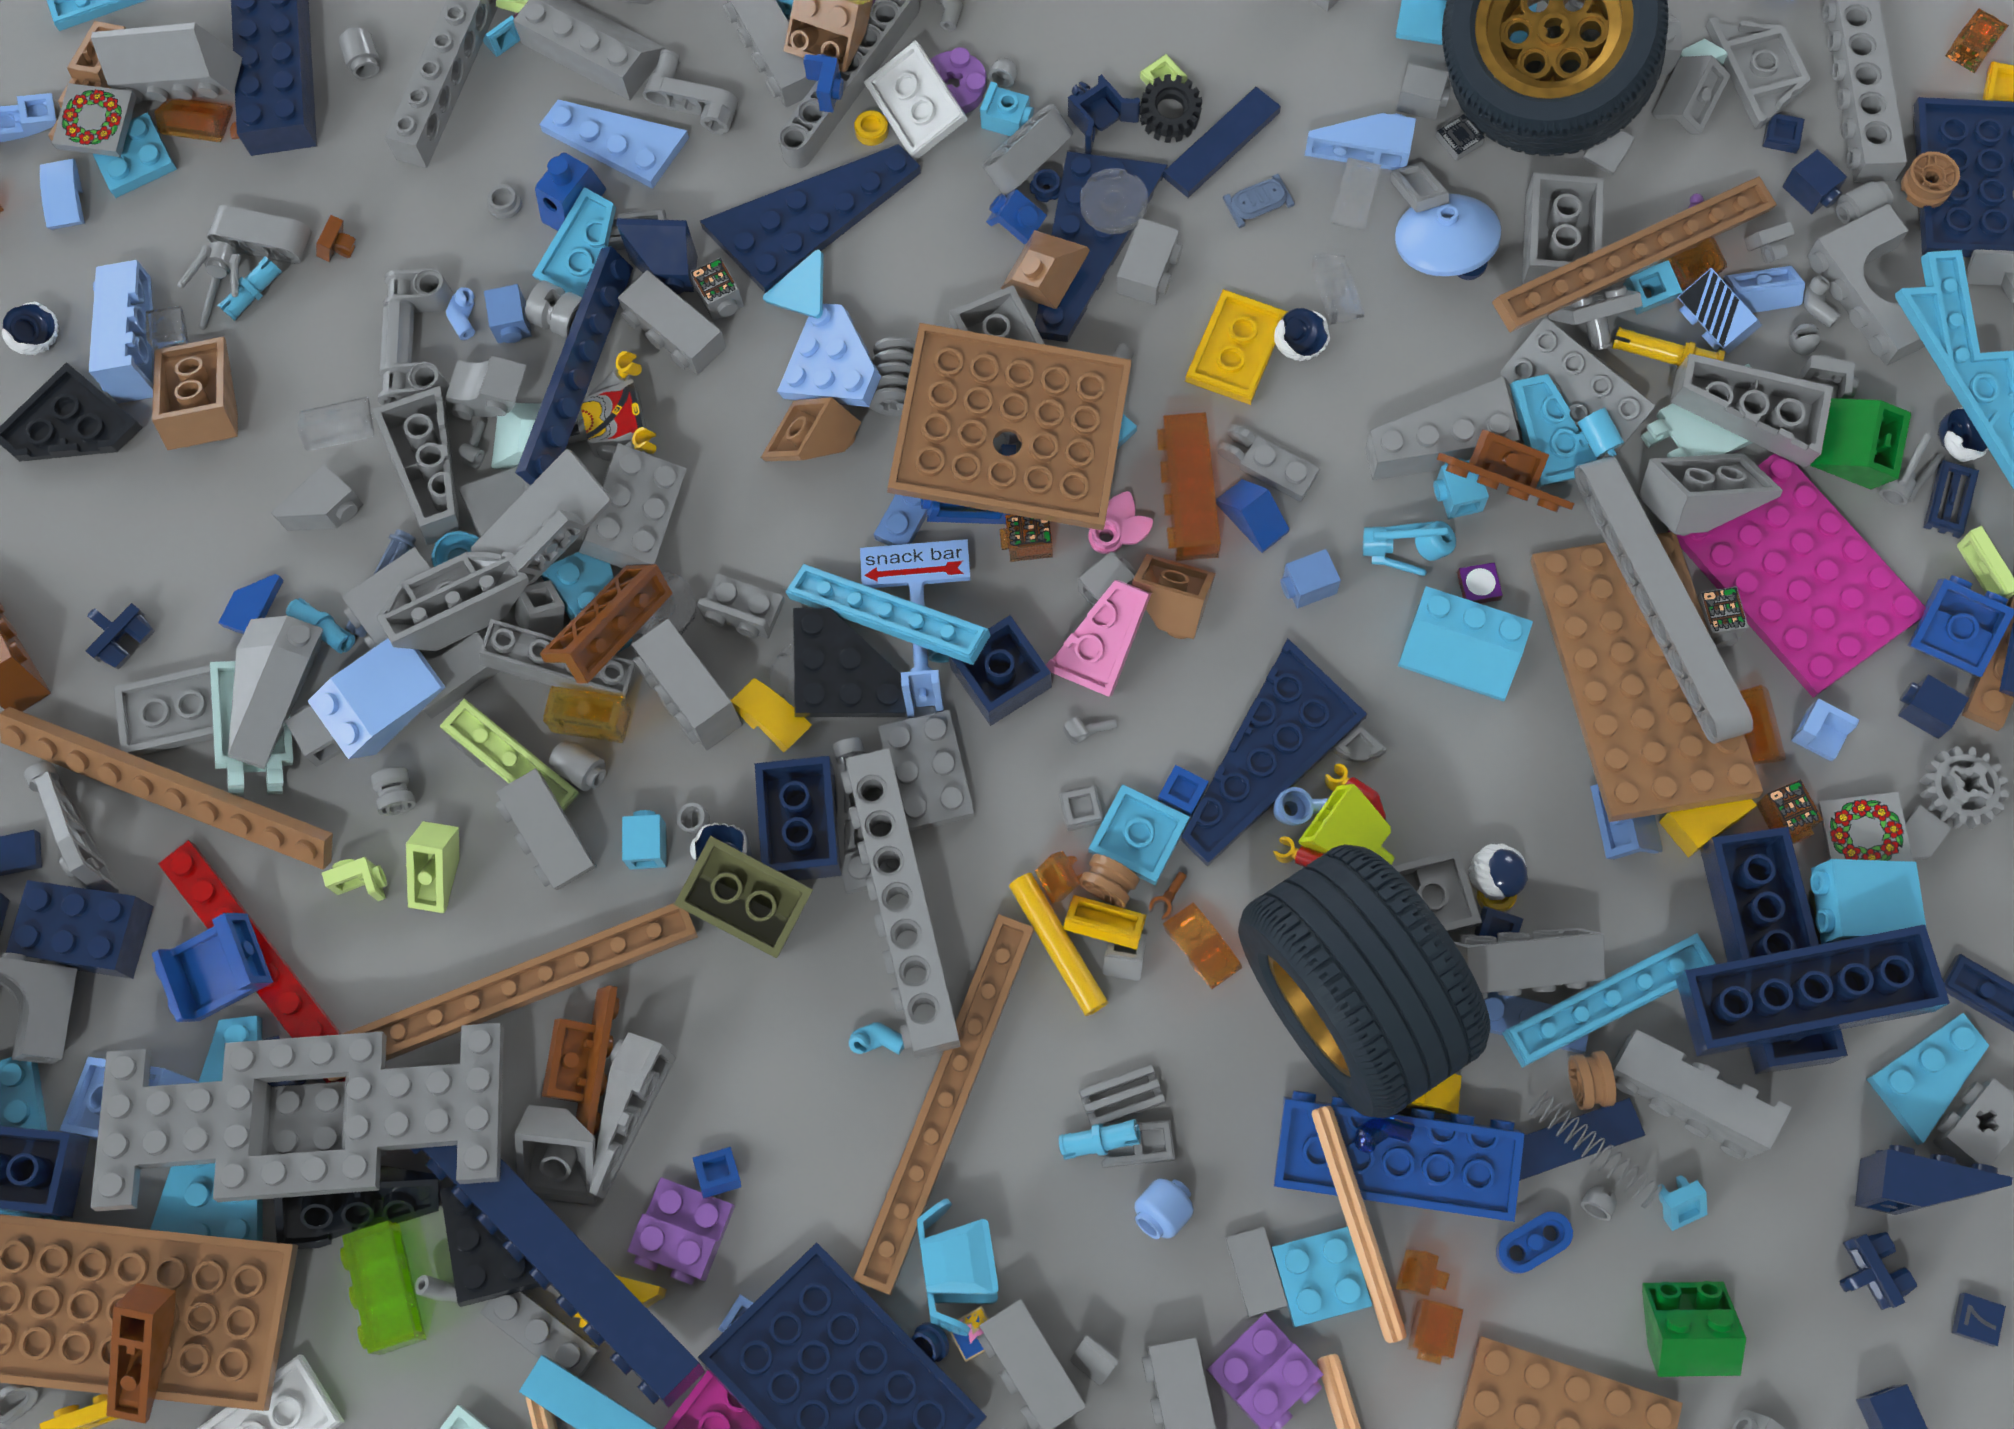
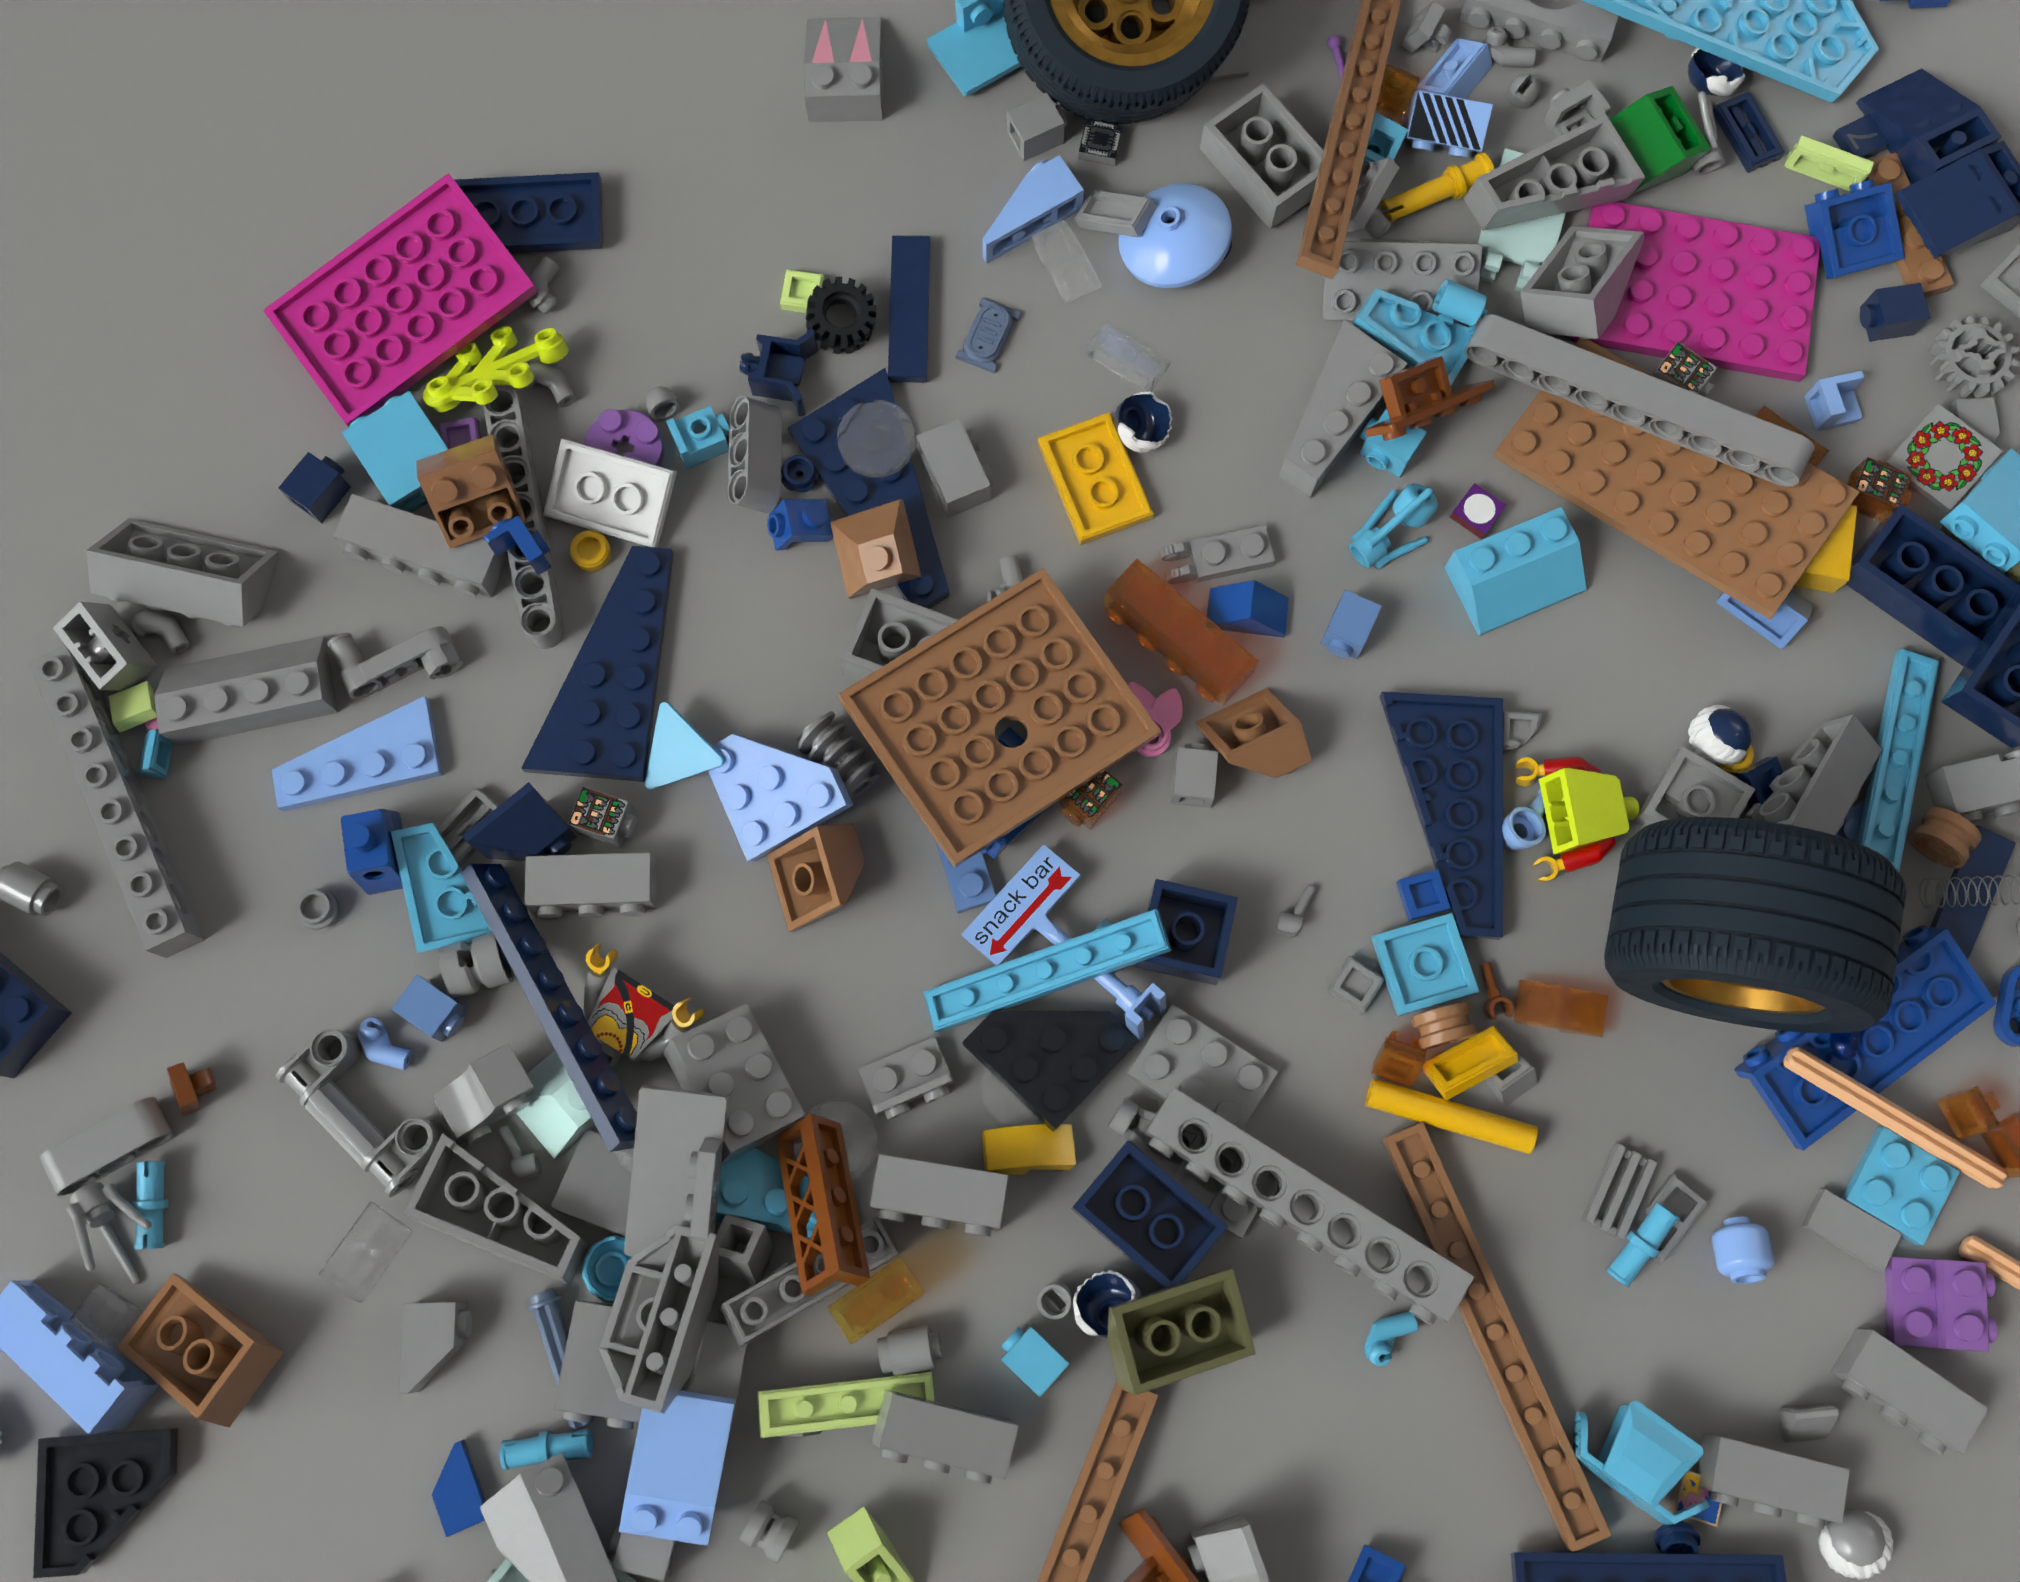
camera: 50 degrees left, 5 degrees up
(1103, 640) = (1242, 829): bright pink wing -> none

